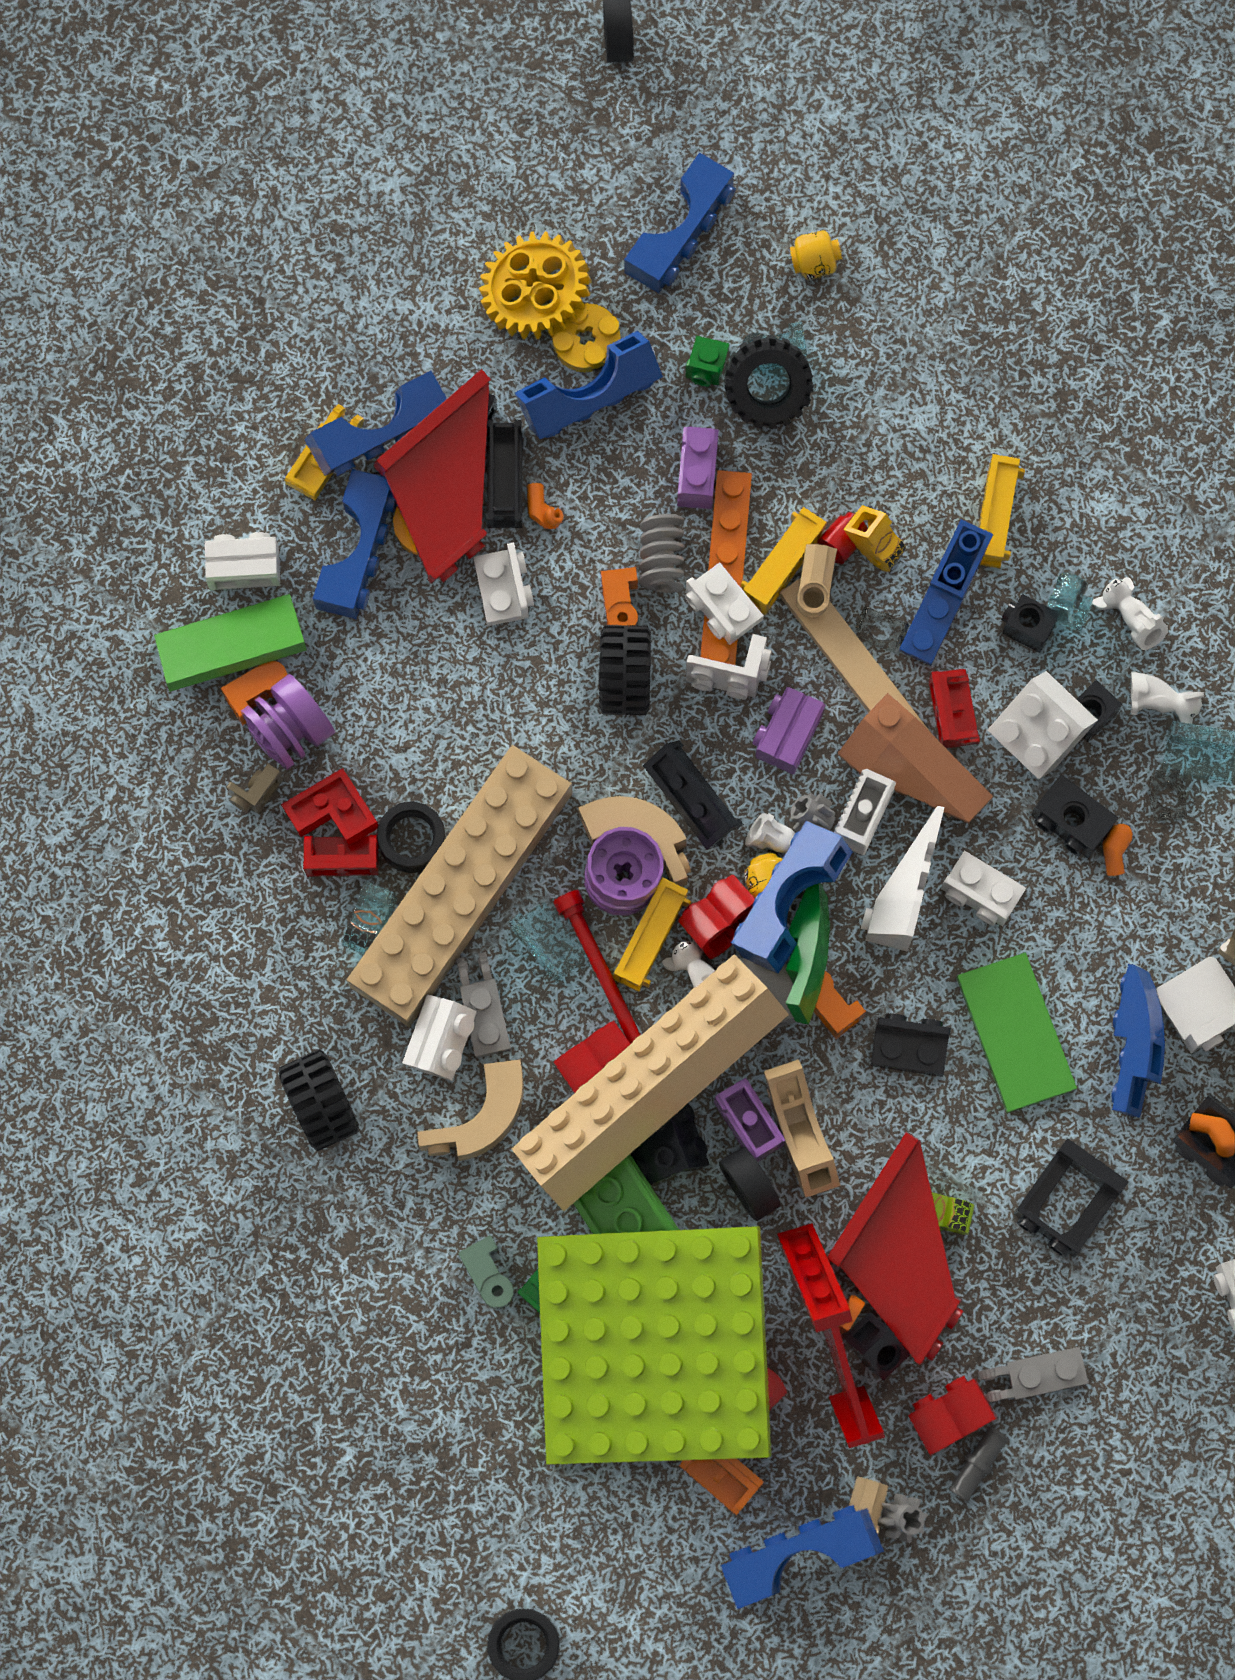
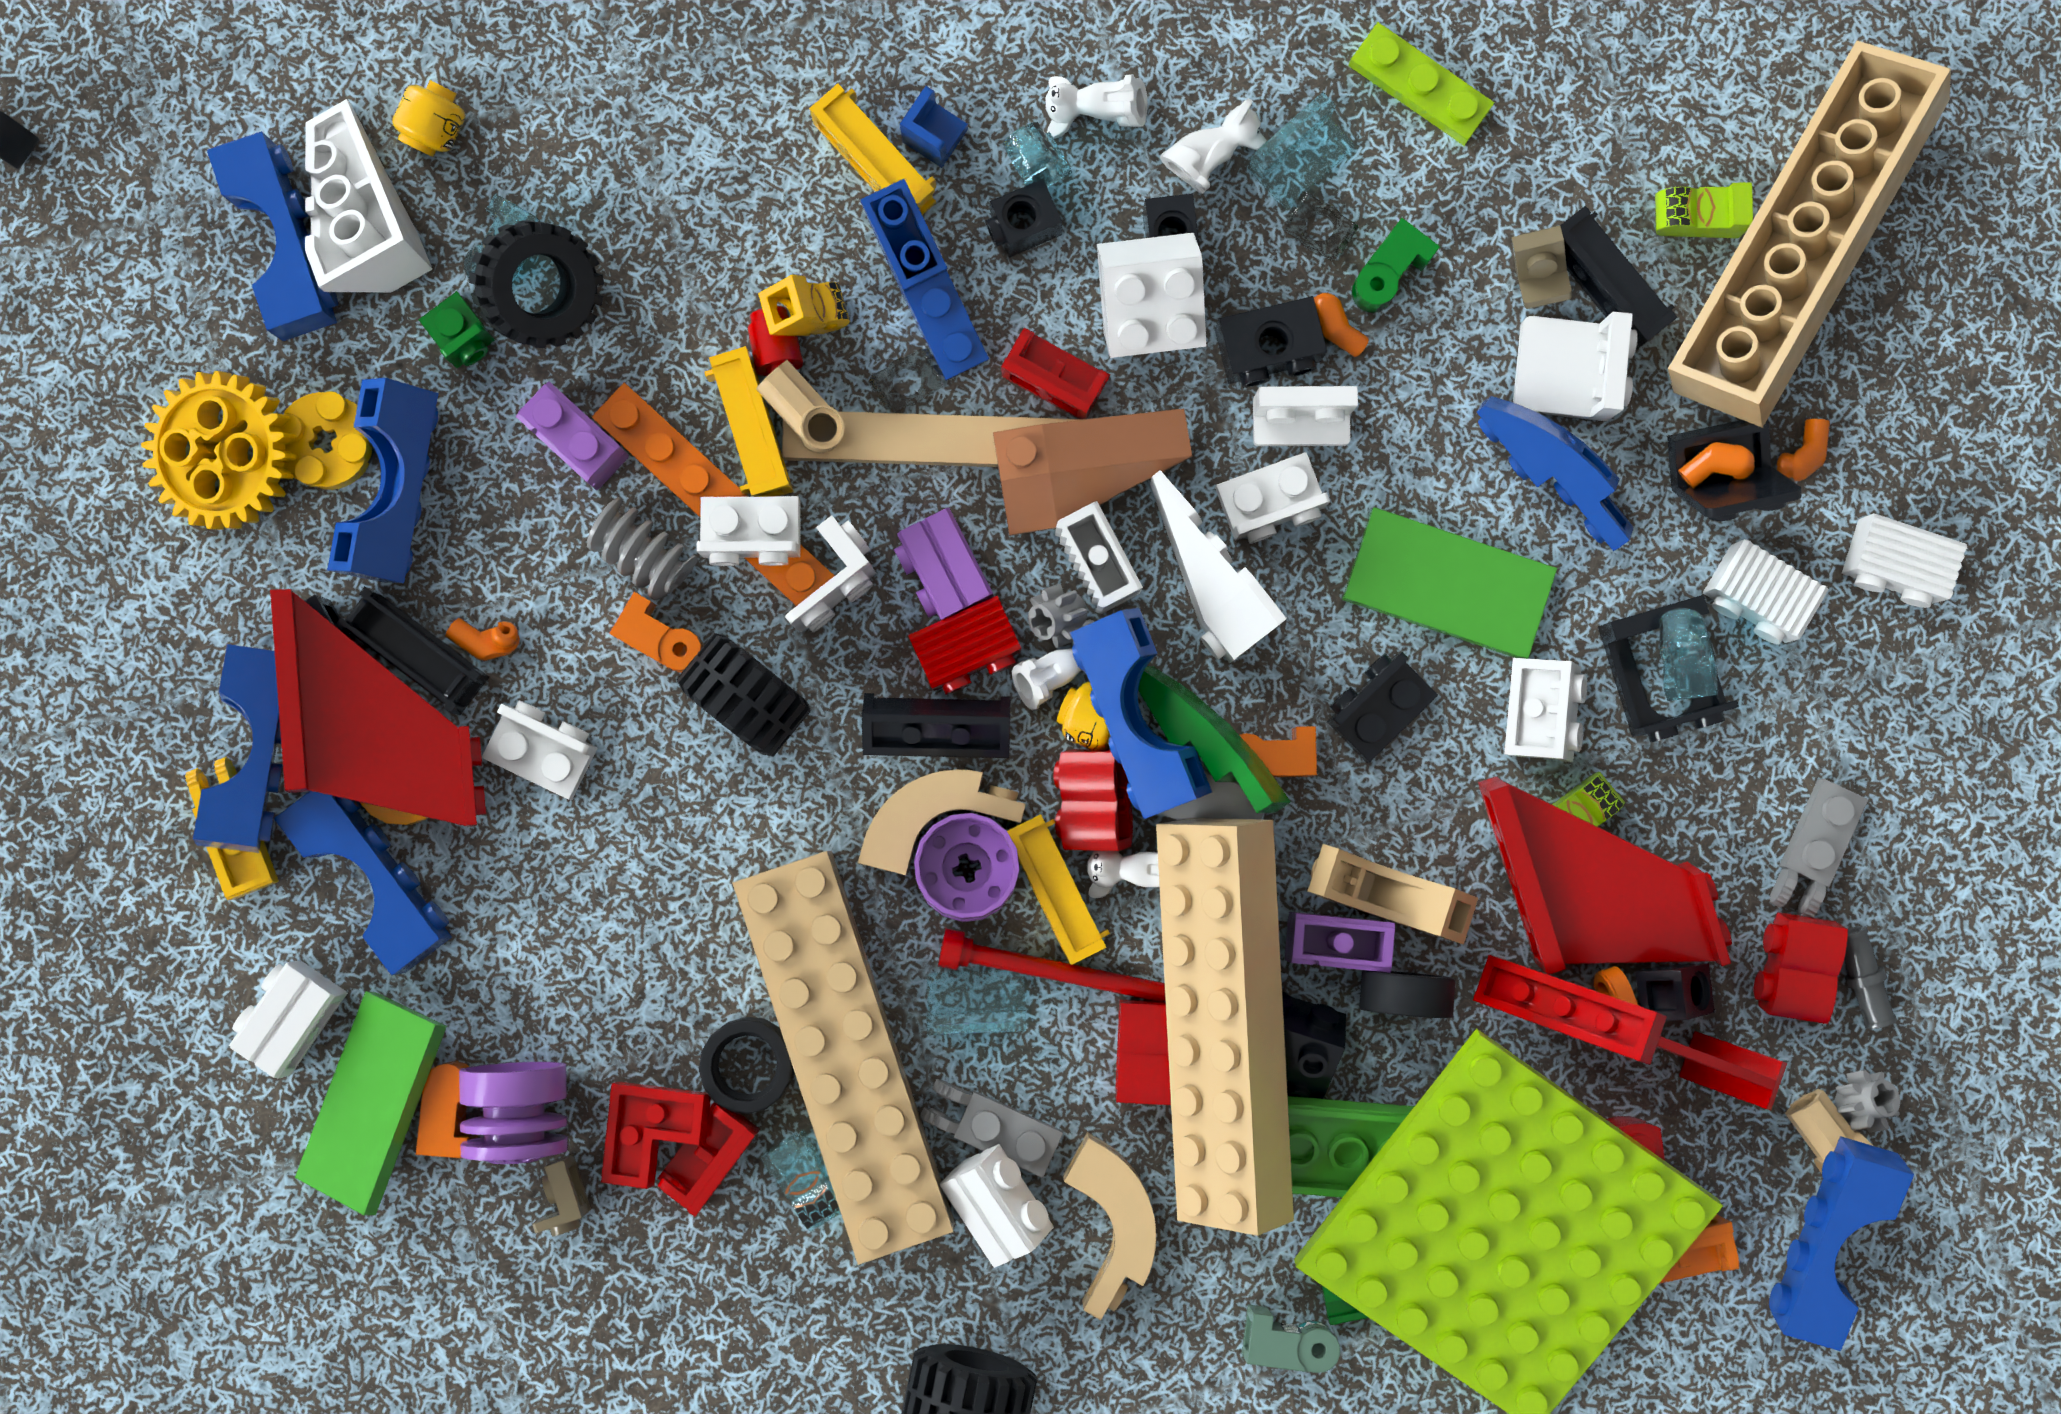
camera: 60 degrees left, 10 degrees up
(727, 260) = (357, 221): none -> white wedge
(752, 777) = (966, 644): none -> red brick
(986, 1145) = (1545, 709): none -> white bracket
(1040, 531) = (931, 128): none -> blue panel
(1045, 868) = (1303, 415): none -> white bracket
(1085, 1198) = (1687, 656): none -> clear light blue leg
(1162, 1223) = (1764, 592): none -> white brick
(1177, 852) = (1380, 276): none -> green leg

